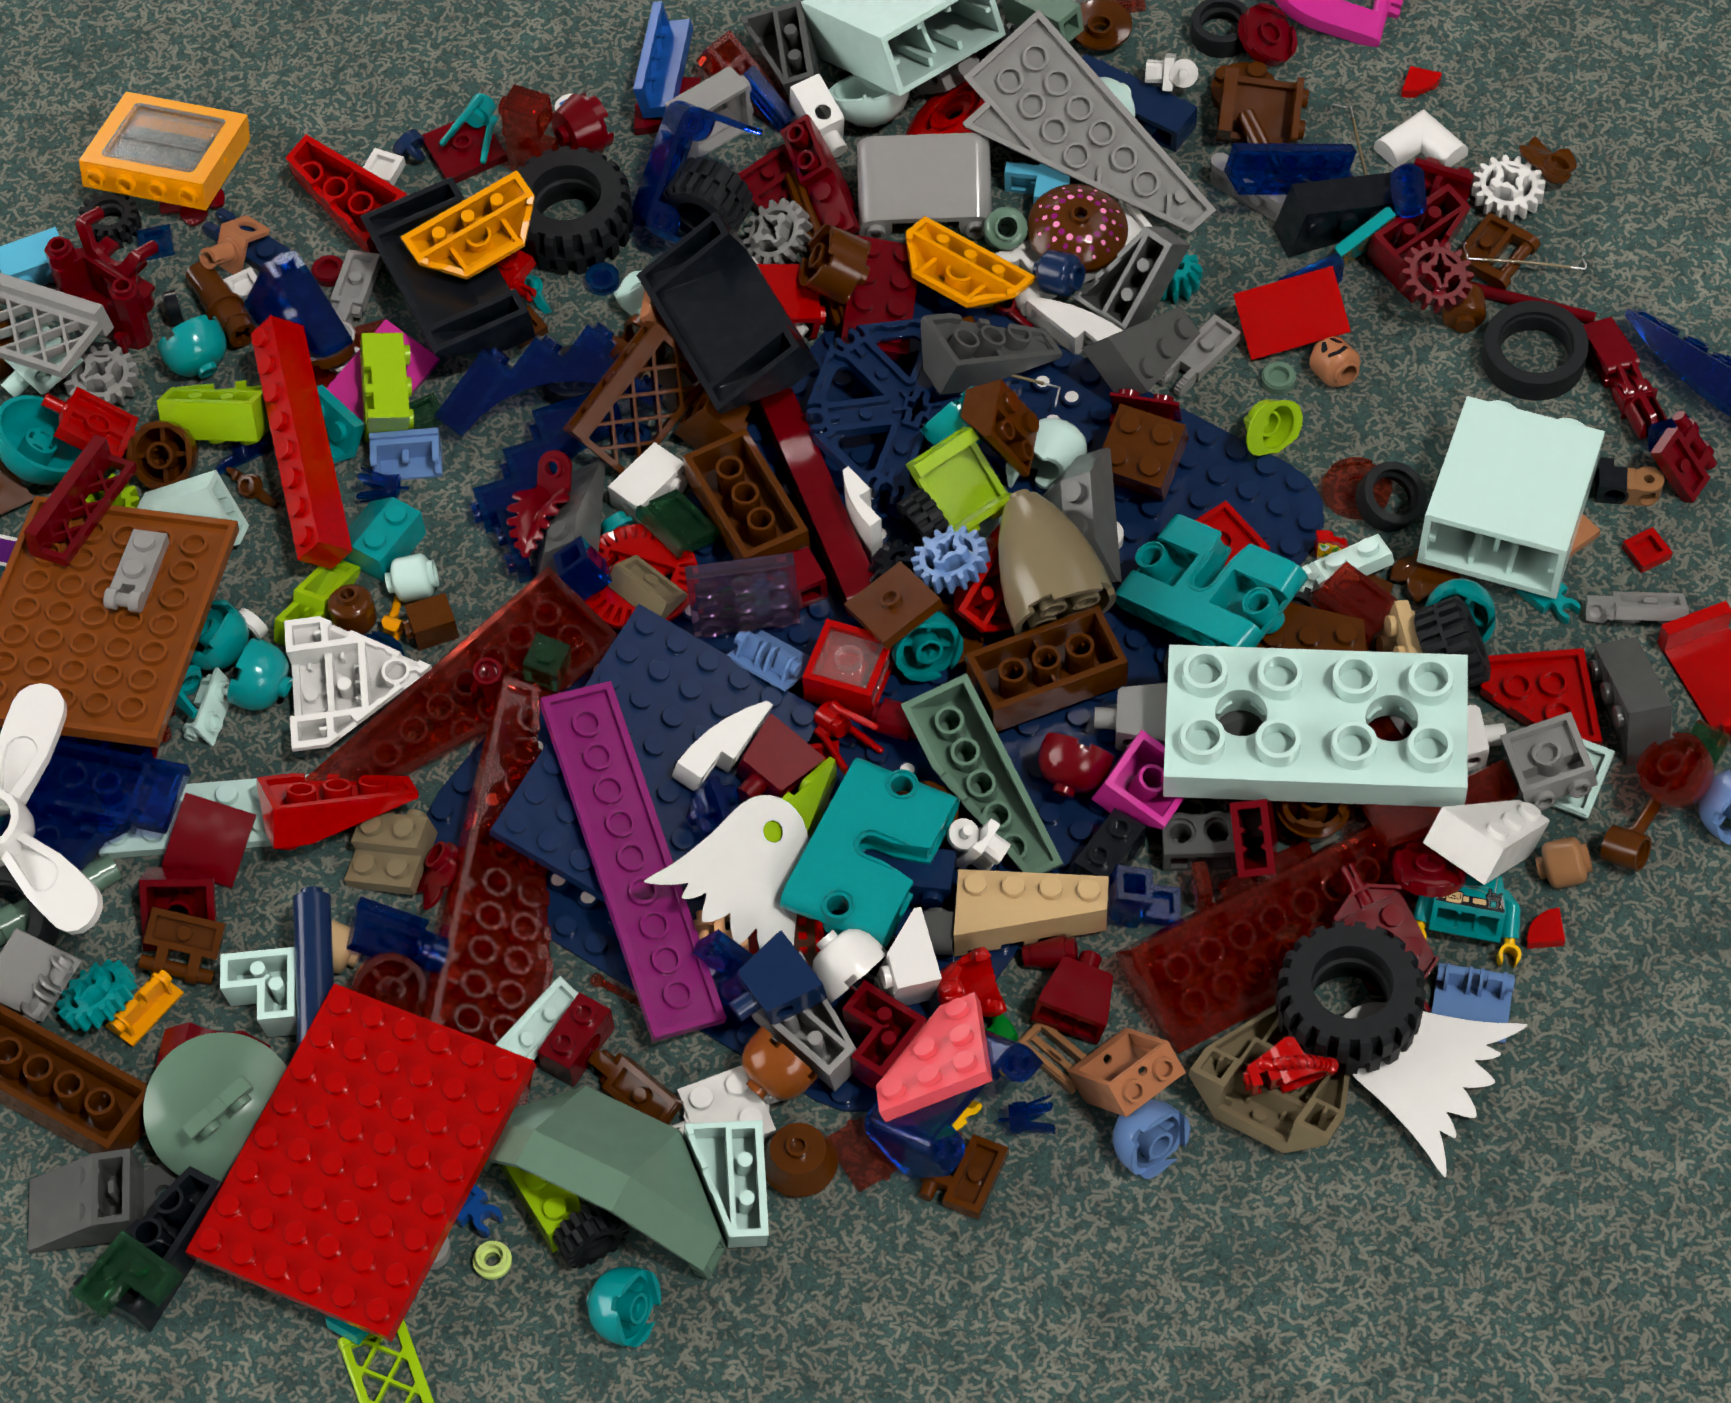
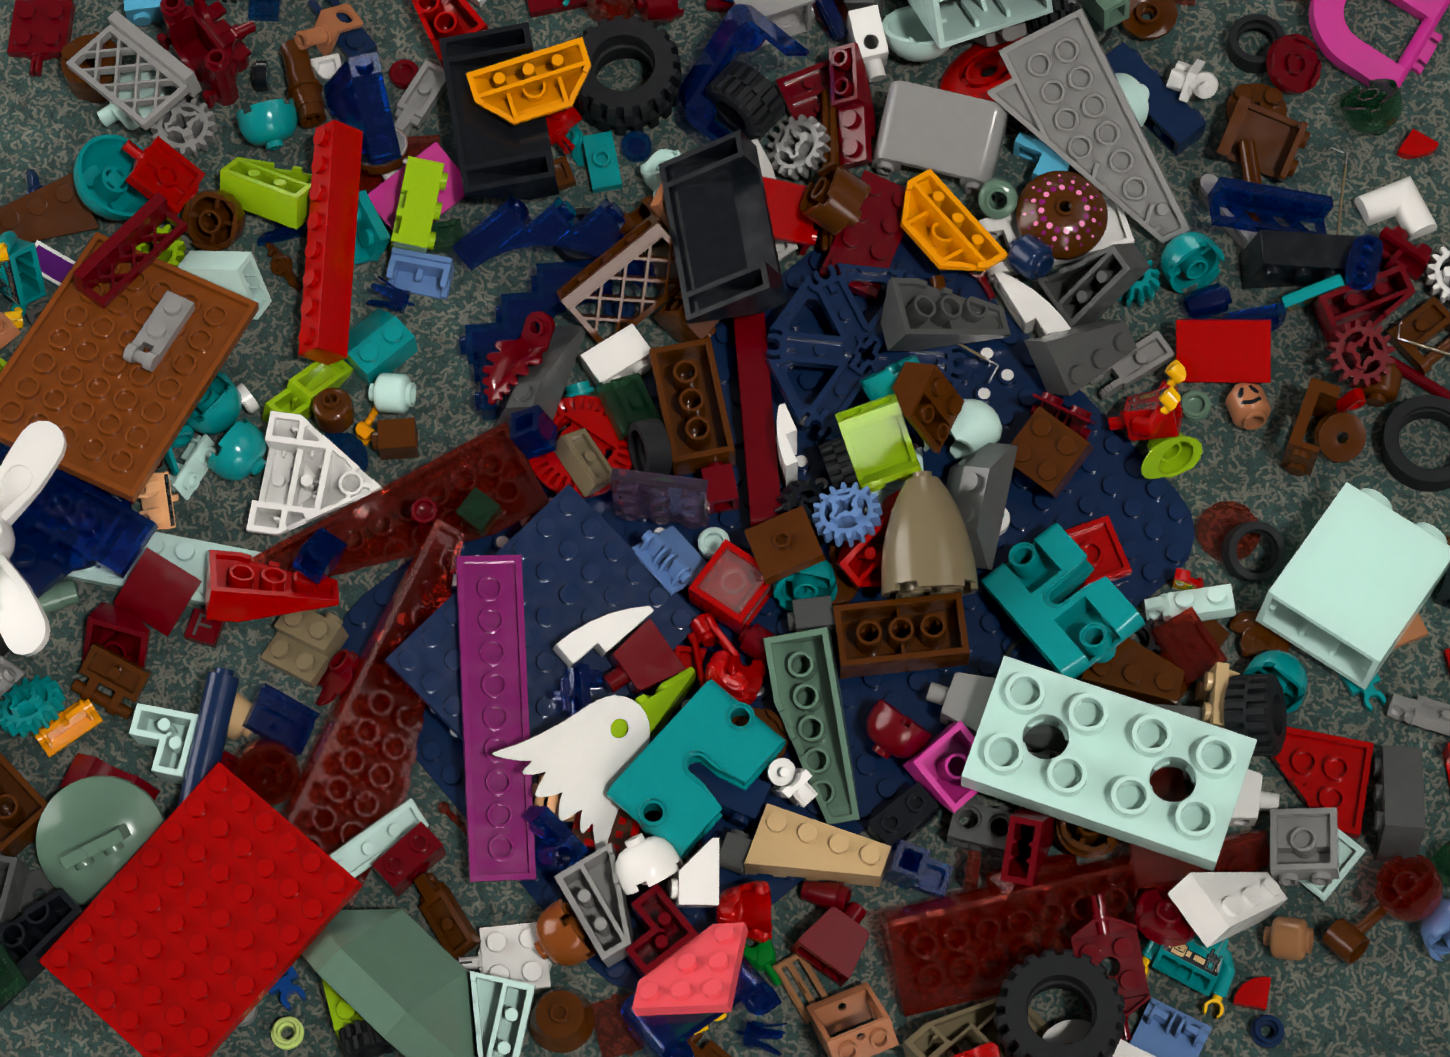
camera: 15 degrees right, 10 degrees up
(183, 747) = (158, 501): none -> light nougat hips
(271, 868) = (202, 630): none -> dark red tile
(383, 750) = (319, 555): none -> clear blue brick
(430, 951) = (309, 748): clear blue plate -> none
(570, 302) = (602, 162): none -> teal plate
(712, 543) = (649, 446): none -> black tyre
(777, 983) = (580, 869): dark blue torso -> none
(807, 634) = (710, 541): none -> light aqua tile
(867, 746) = (737, 679): none -> red hair
(941, 670) = (811, 614): none -> dark grey brick
(1229, 232) = (1195, 256): none -> teal cylinder
(1240, 388) = (1154, 412): none -> red torso
(1257, 272) = (1207, 301): none -> clear blue brick
(1364, 54) = (1373, 107): none -> clear green cylinder
(1407, 341) = (1318, 402): none -> reddish brown window
(1427, 370) = (1353, 439): none -> reddish brown piece
(1441, 329) = (1352, 400): none -> red tile
(1576, 953) = (1267, 1021): none -> dark blue plate

